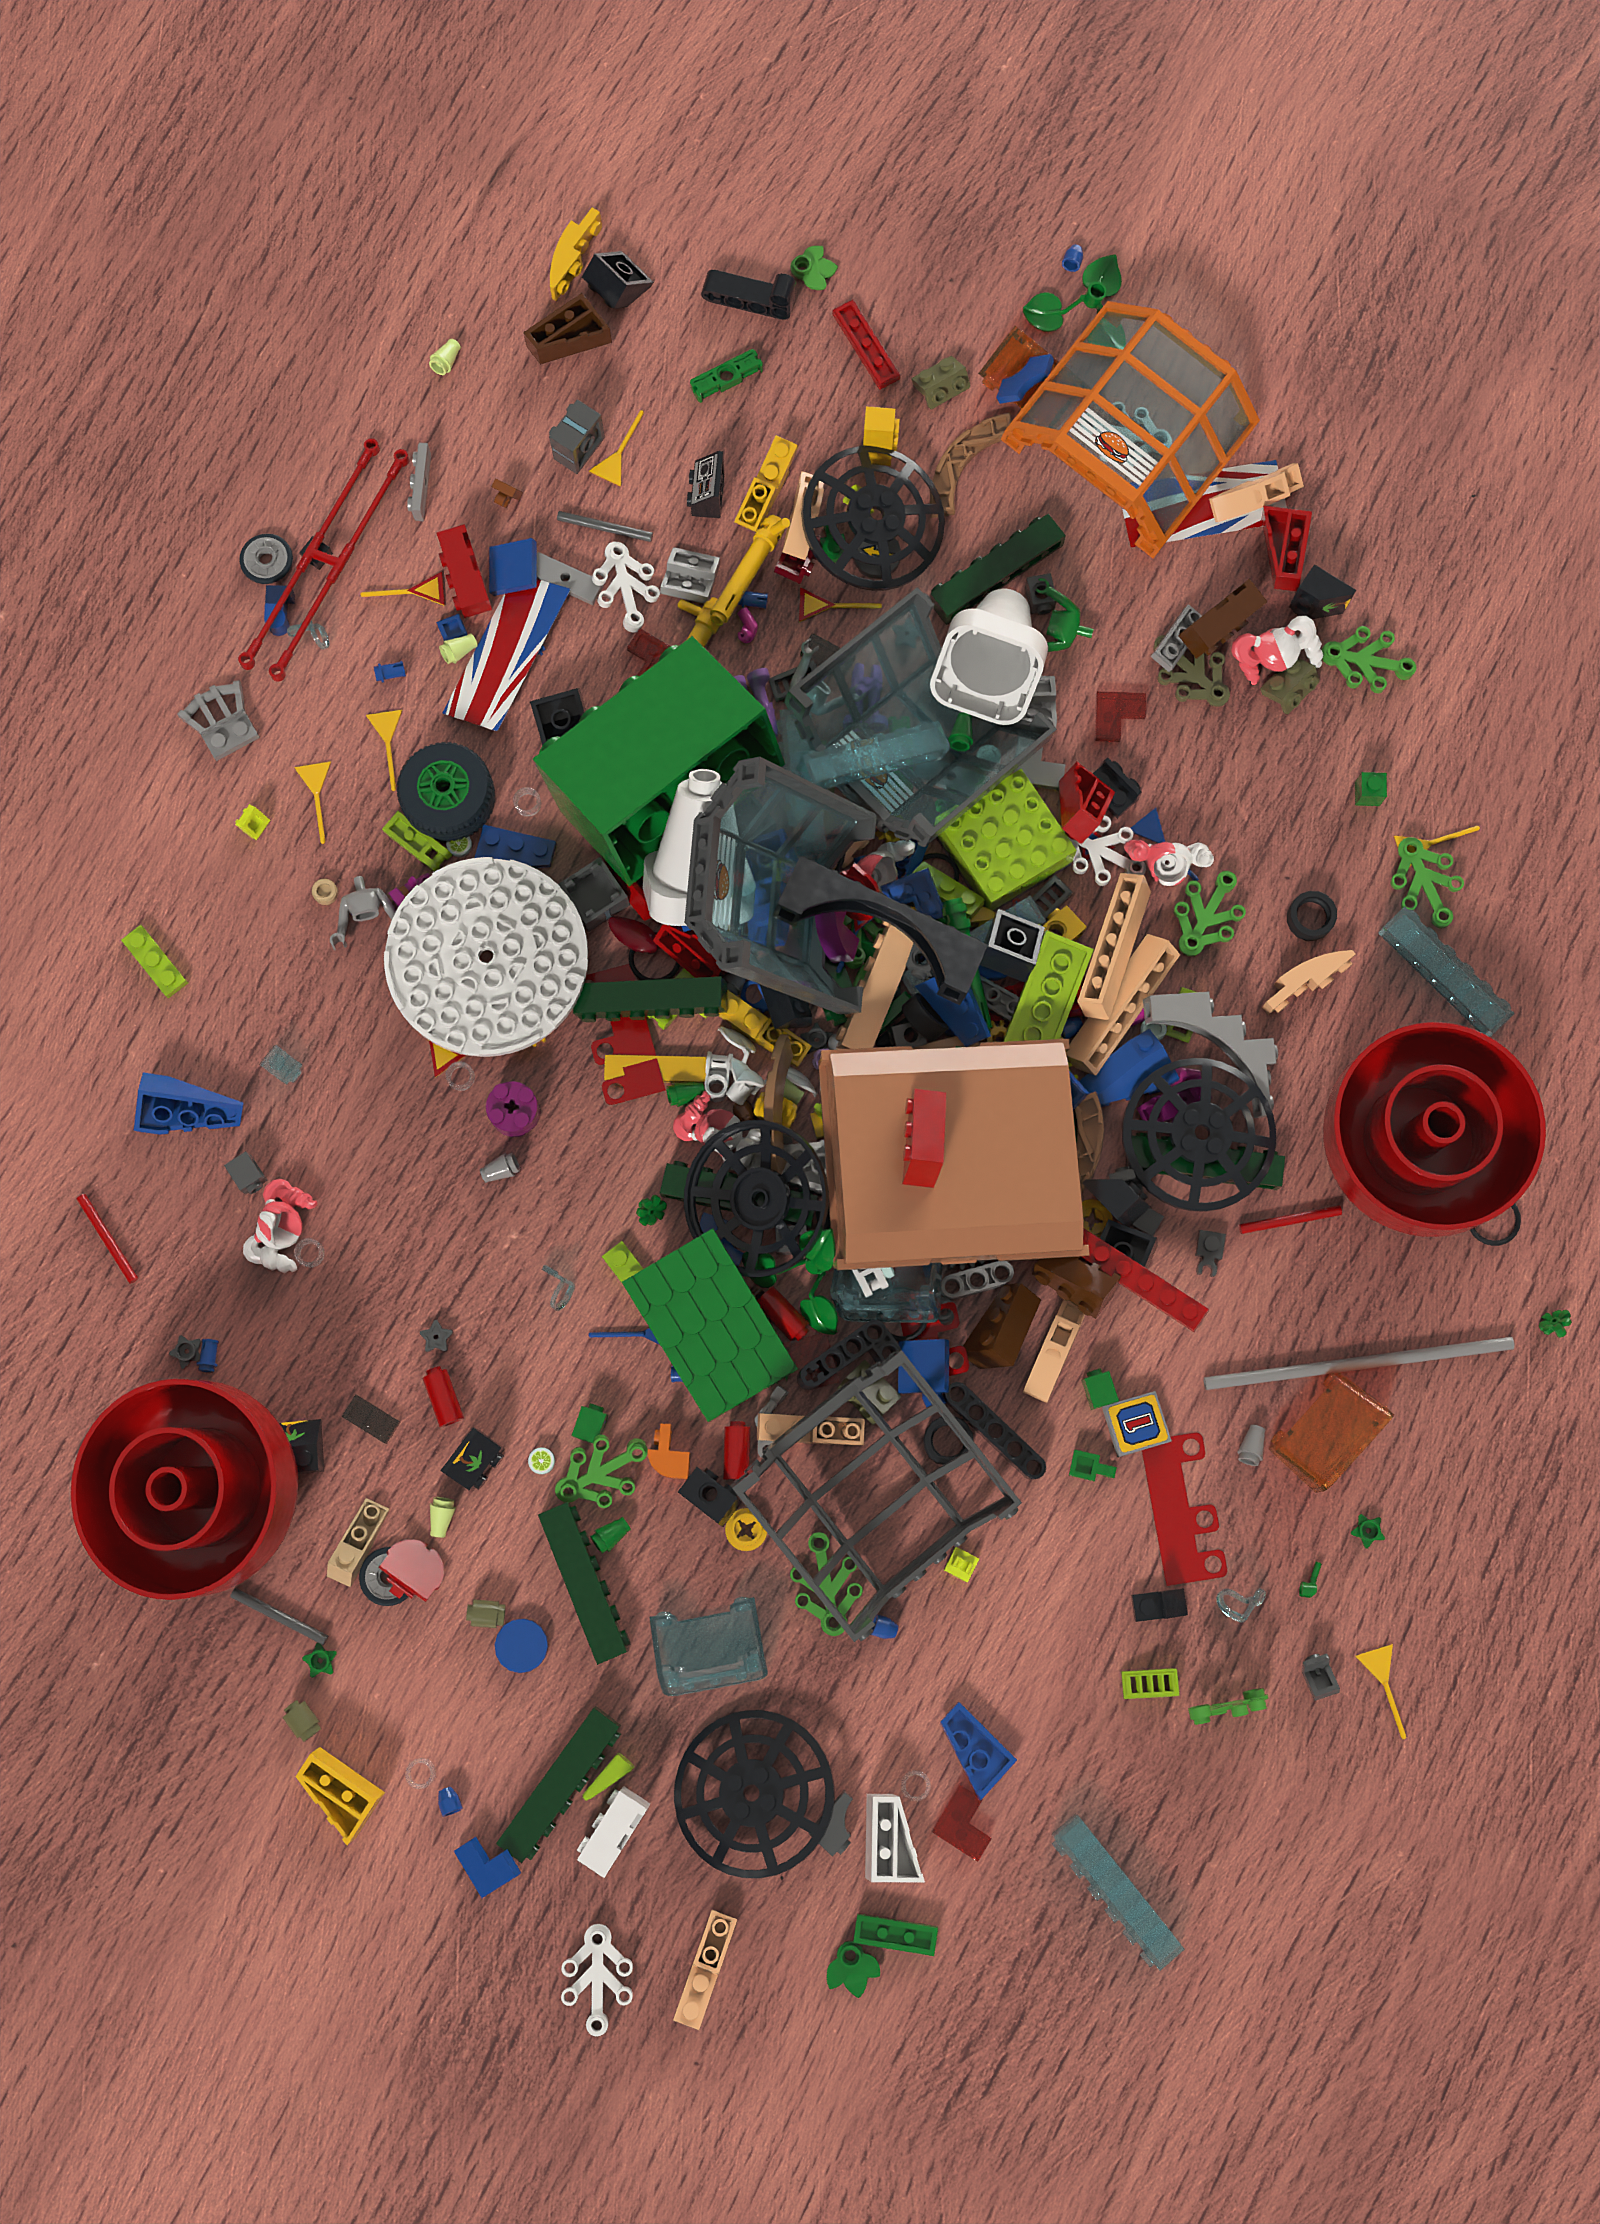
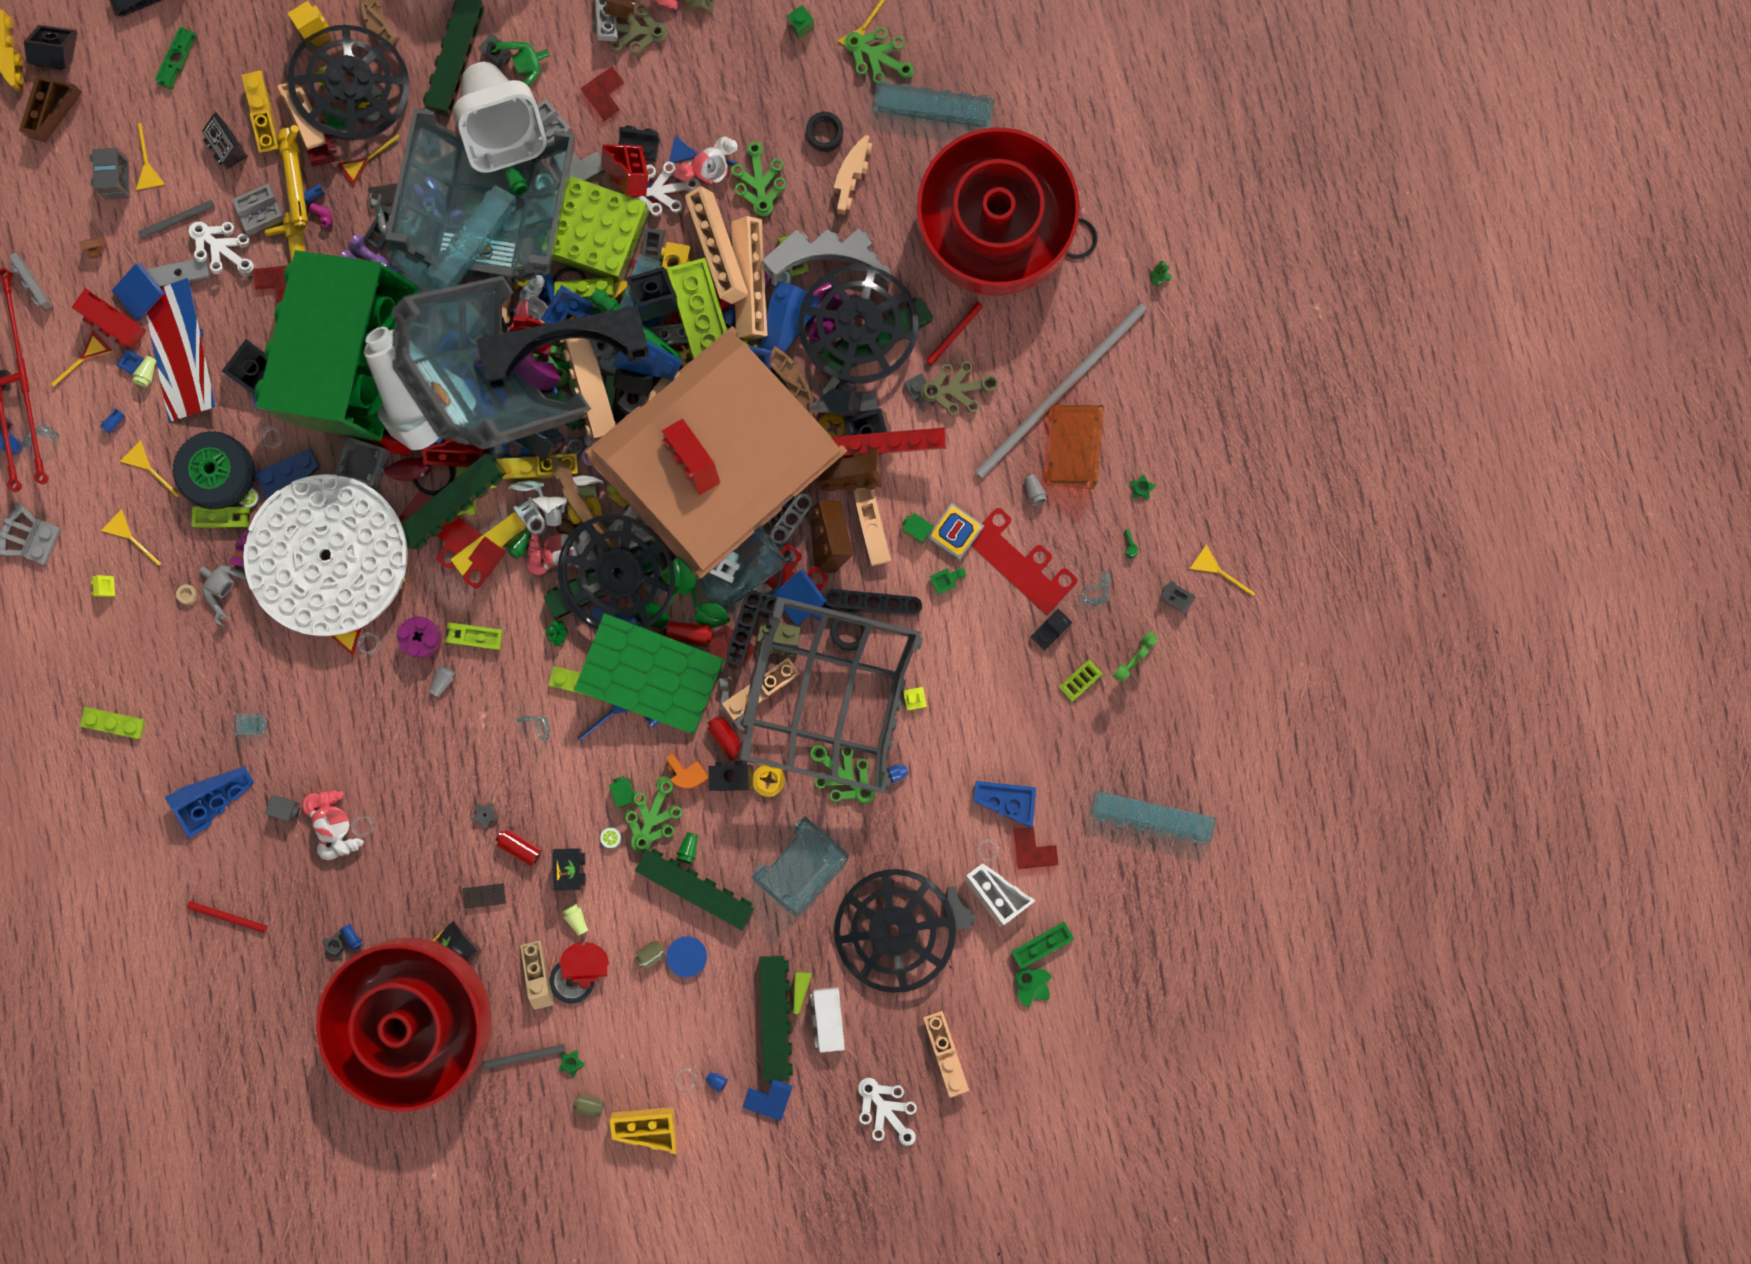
camera: 40 degrees left, 5 degrees up
(568, 1150) = (474, 636): none -> lime plate
(1249, 1277) = (955, 388): none -> olive plant

